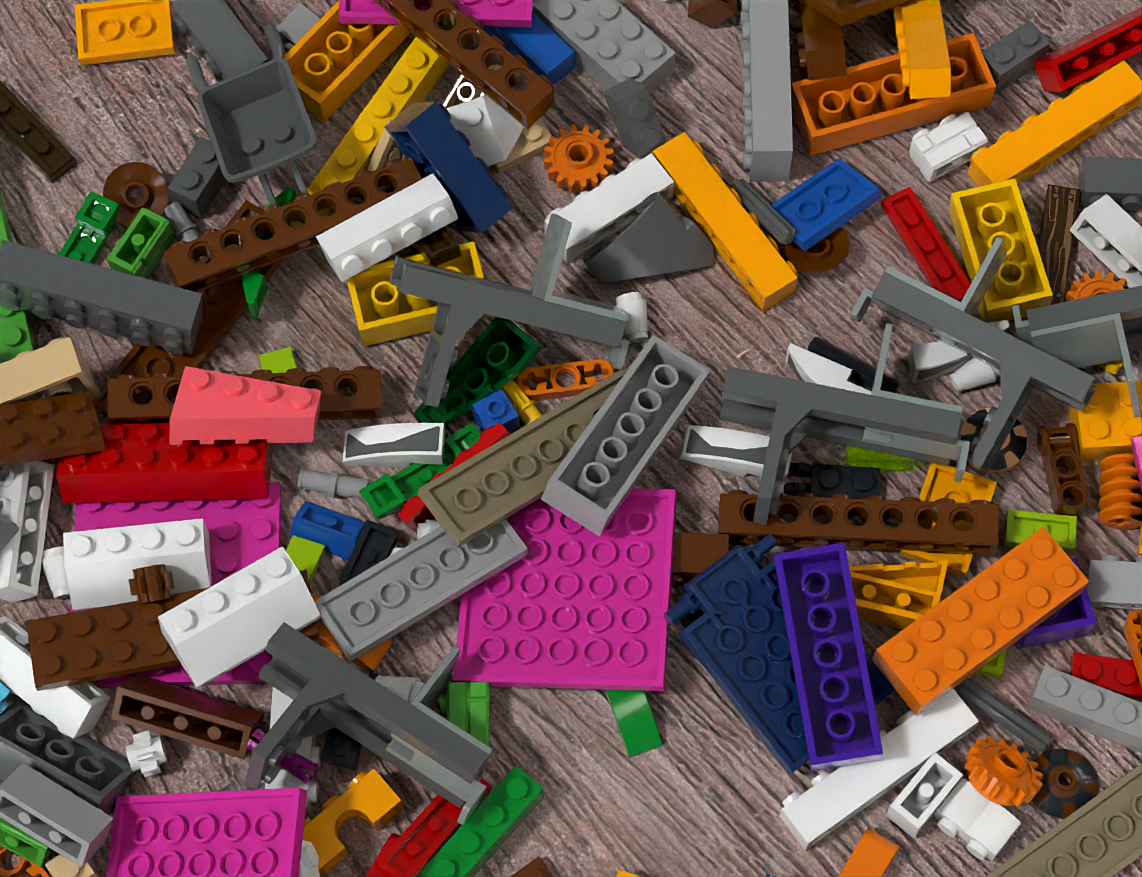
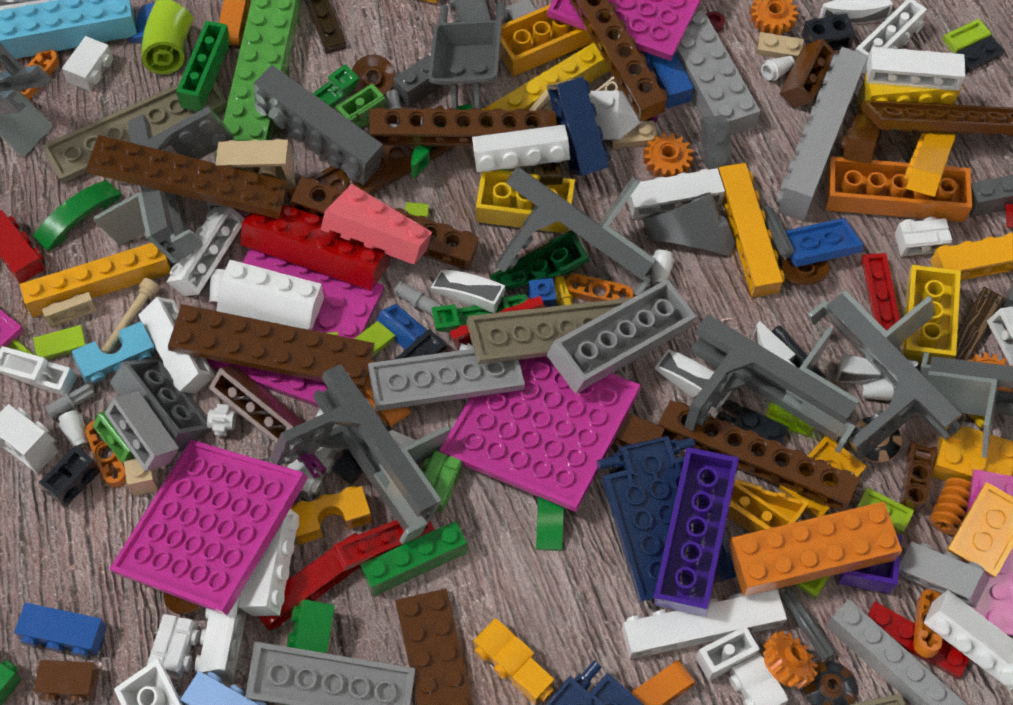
camera: 20 degrees right, 5 degrees down
(151, 583) = (270, 311): reddish brown gear -> none
(238, 617) = (305, 351): white slope -> none

